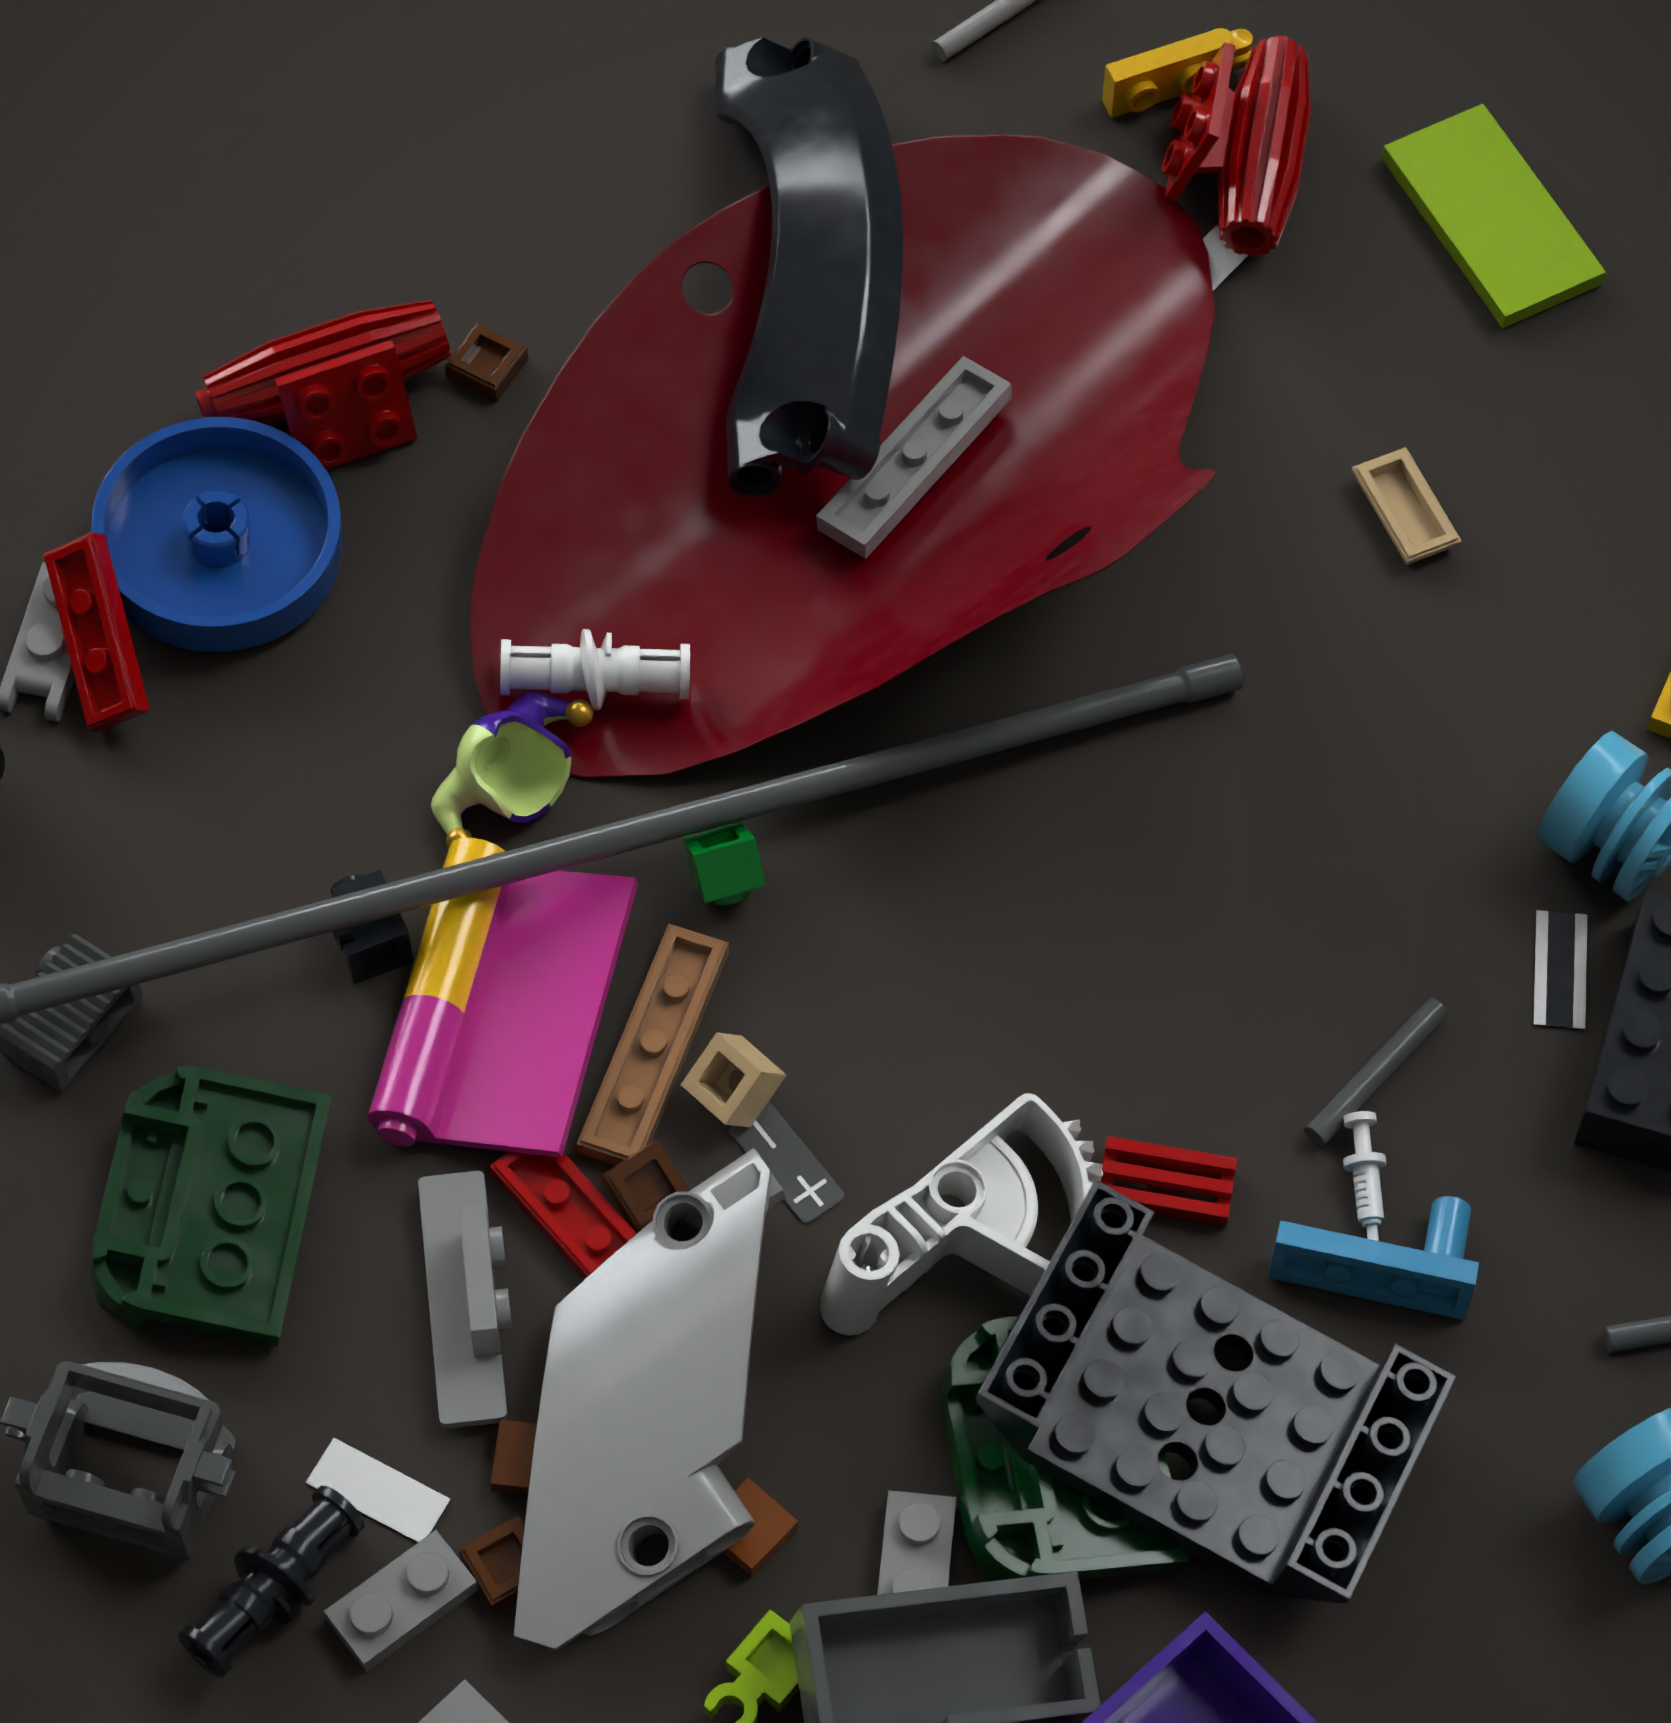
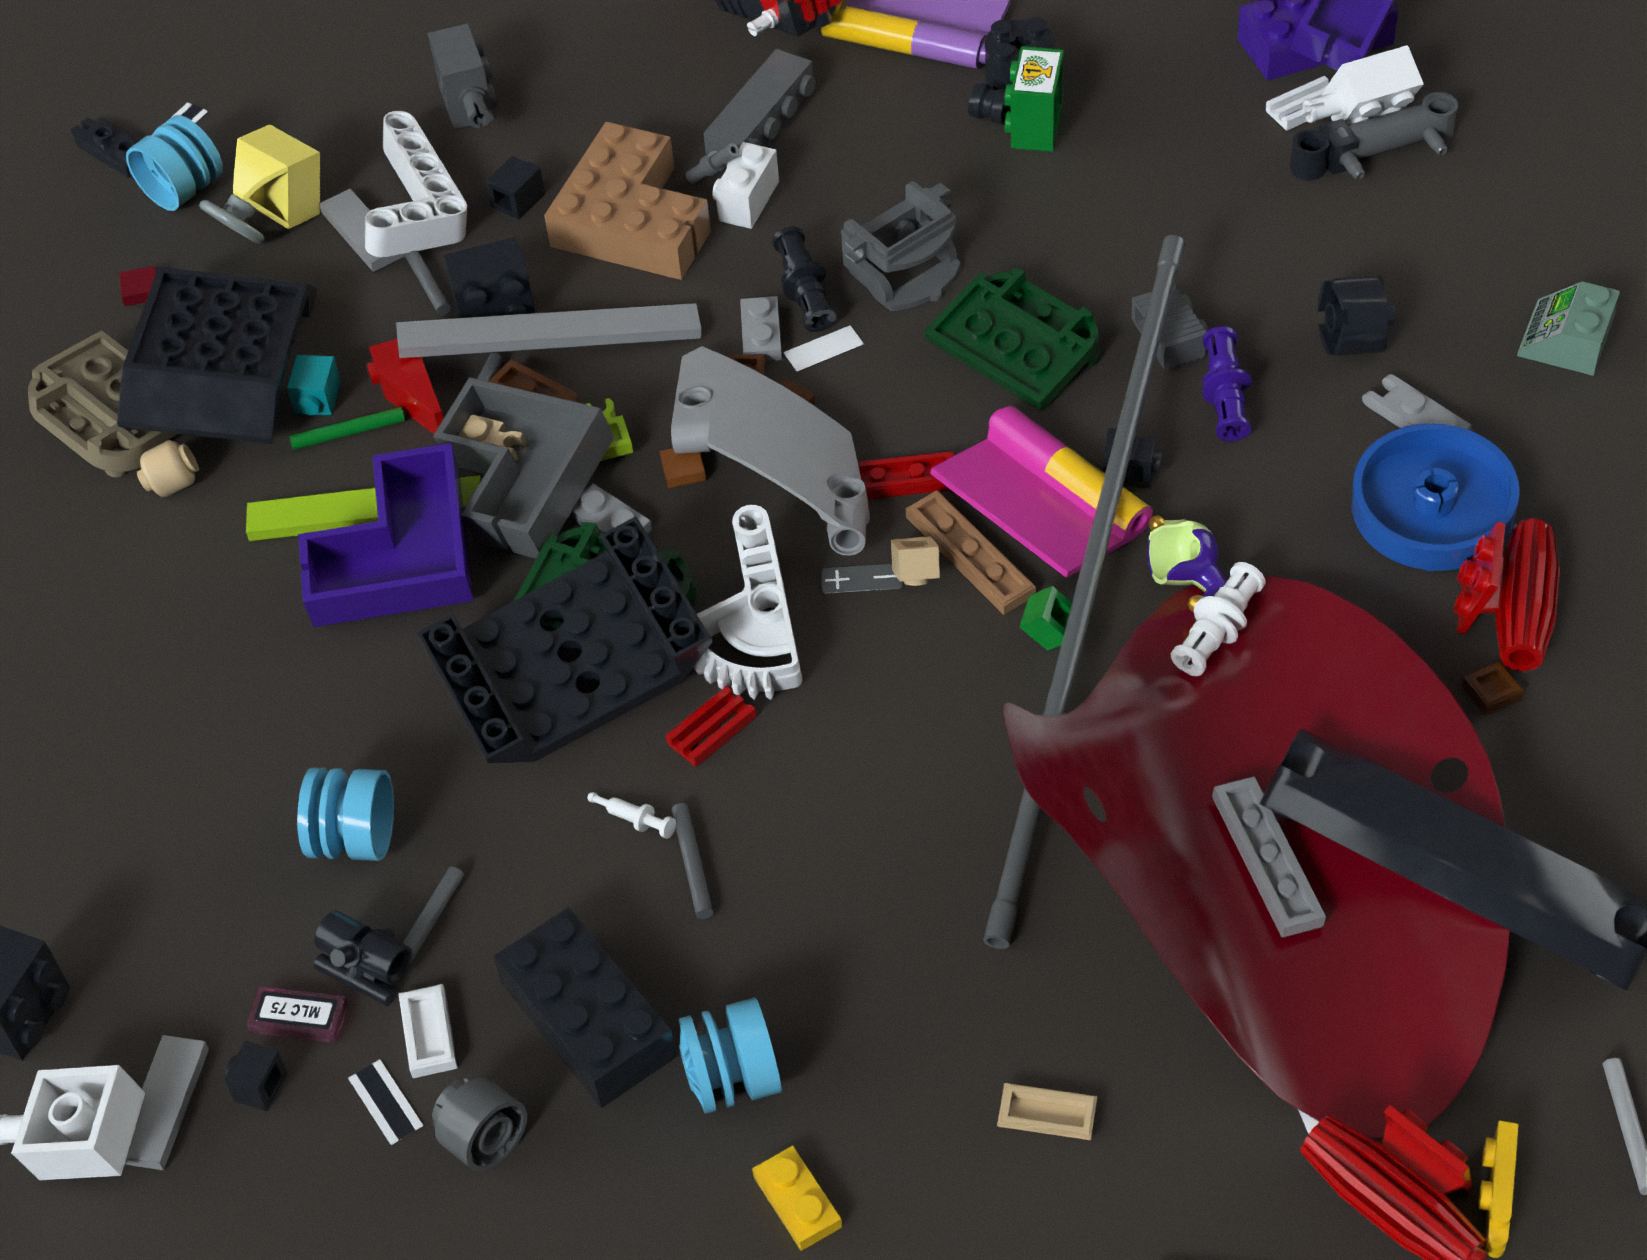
camera: 130 degrees right, 10 degrees down
(96, 632) = (1397, 413): red tile -> none
(150, 872) = (1226, 384): none -> dark purple piece
(463, 1298) = (891, 410): light grey bracket -> none
(643, 1183) = (890, 505): reddish brown tile -> none
(1385, 1272) = (552, 799): dark azure piece -> none
(1560, 969) = (677, 995): sticker -> none

